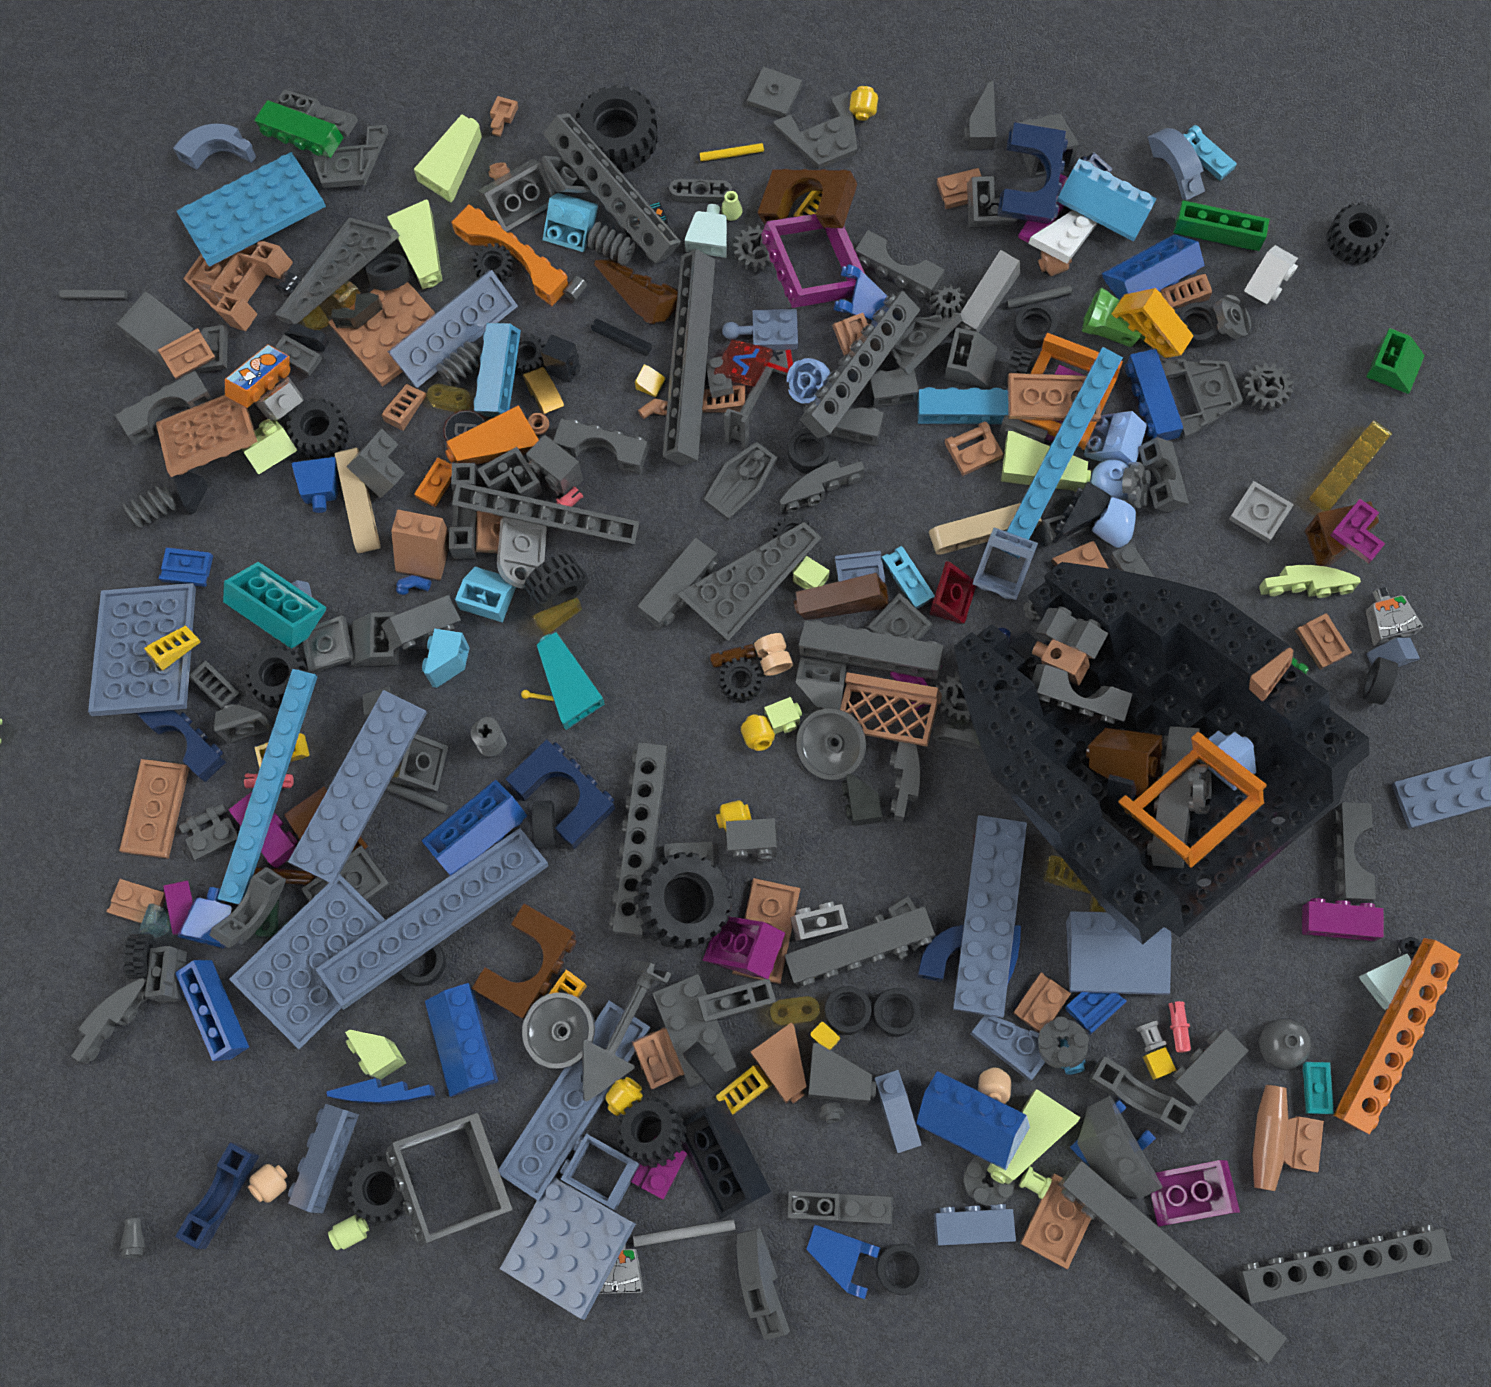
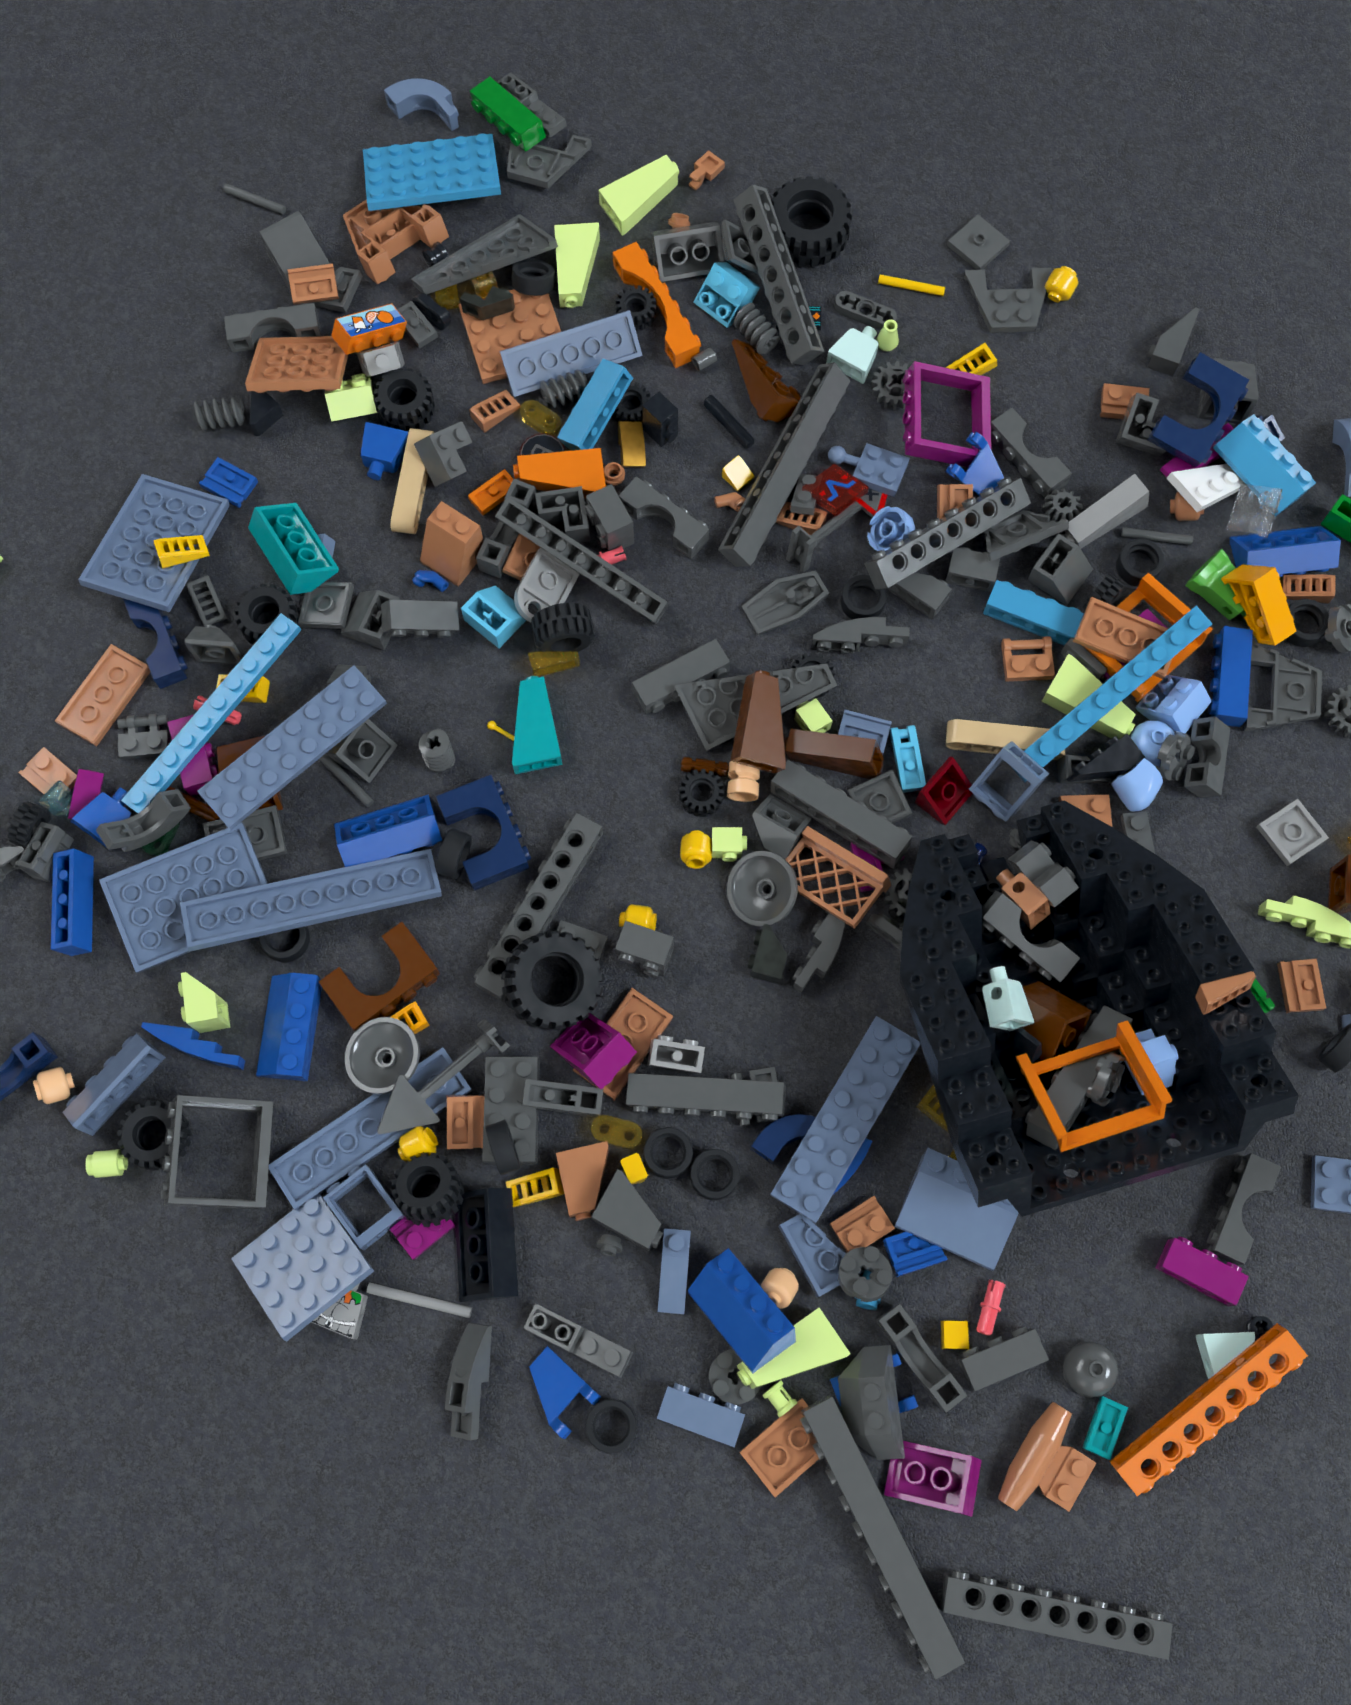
camera: 20 degrees right, 0 degrees up
(446, 656) = (429, 659): medium azure slope -> none
(769, 600) = (759, 725): none -> reddish brown slope
(788, 185) = (951, 336): reddish brown arch -> none
(1089, 757) = (1006, 1002): none -> light aqua torso
(1114, 242) = (1255, 509): none -> clear hinge
(1152, 1027) = (952, 1304): light grey bush -> none

